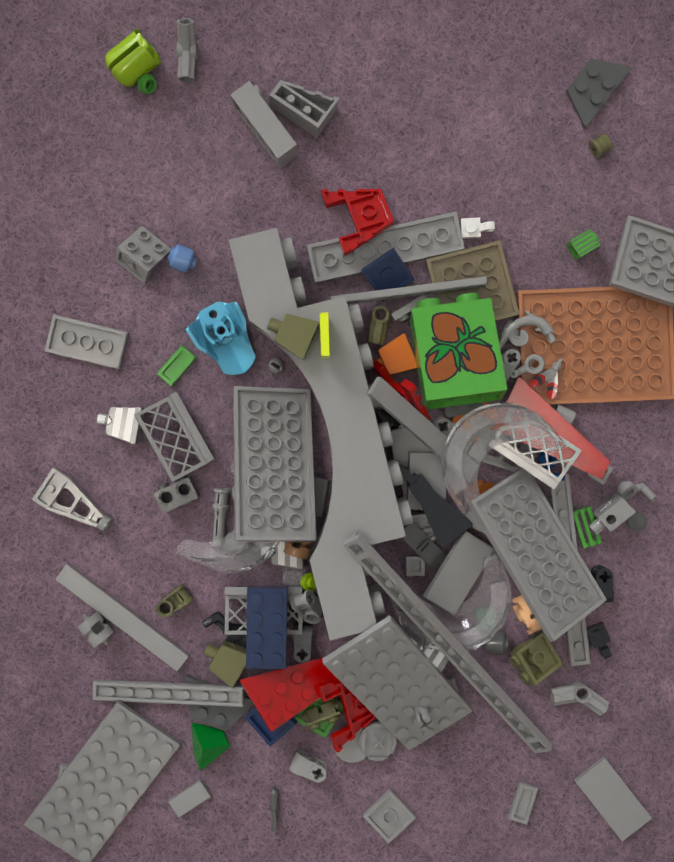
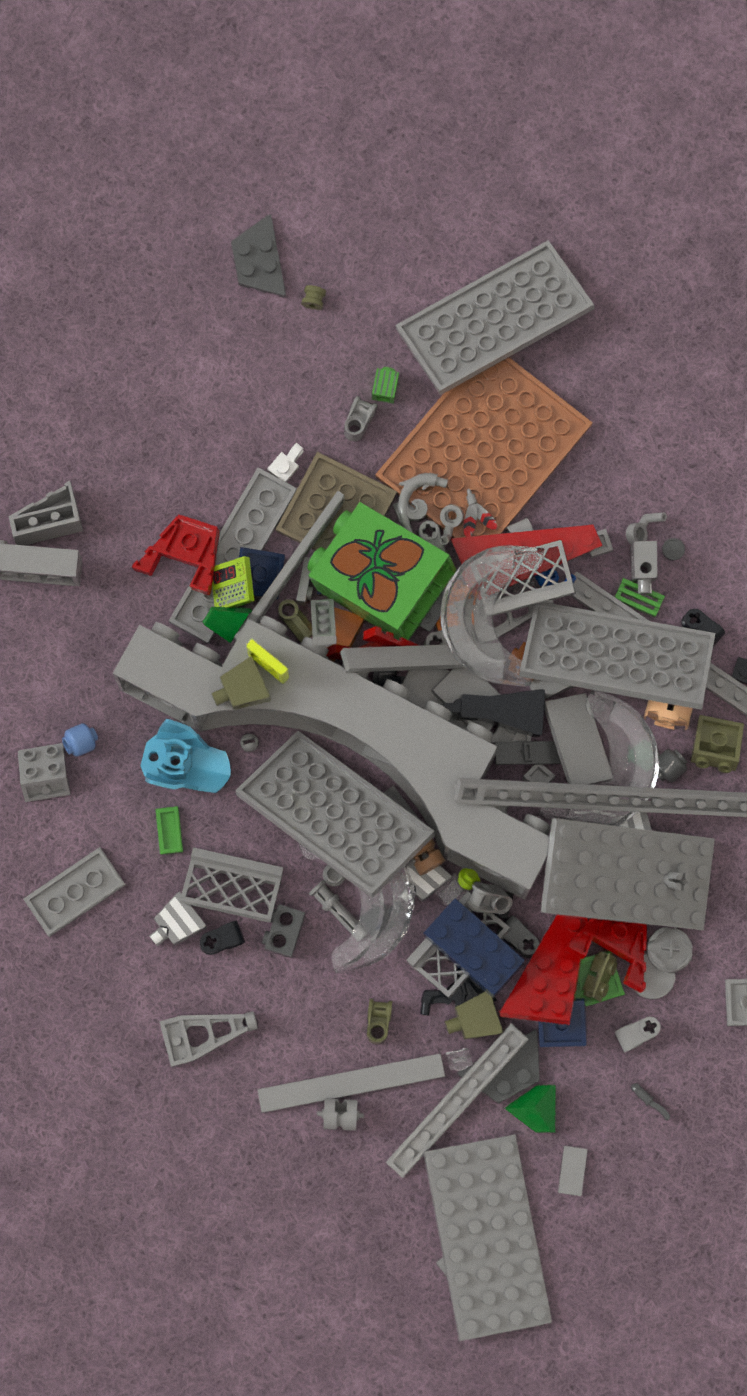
camera: 45 degrees left, 10 degrees down
(141, 461) = (226, 938): none -> black piece
(194, 671) = (459, 1059): none -> clear plate
(338, 282) = (226, 621): none -> green slope
(364, 264) = (233, 583): none -> lime tile
(388, 347) = (323, 622): none -> light grey plate
(548, 246) = (359, 415): none -> light grey piece

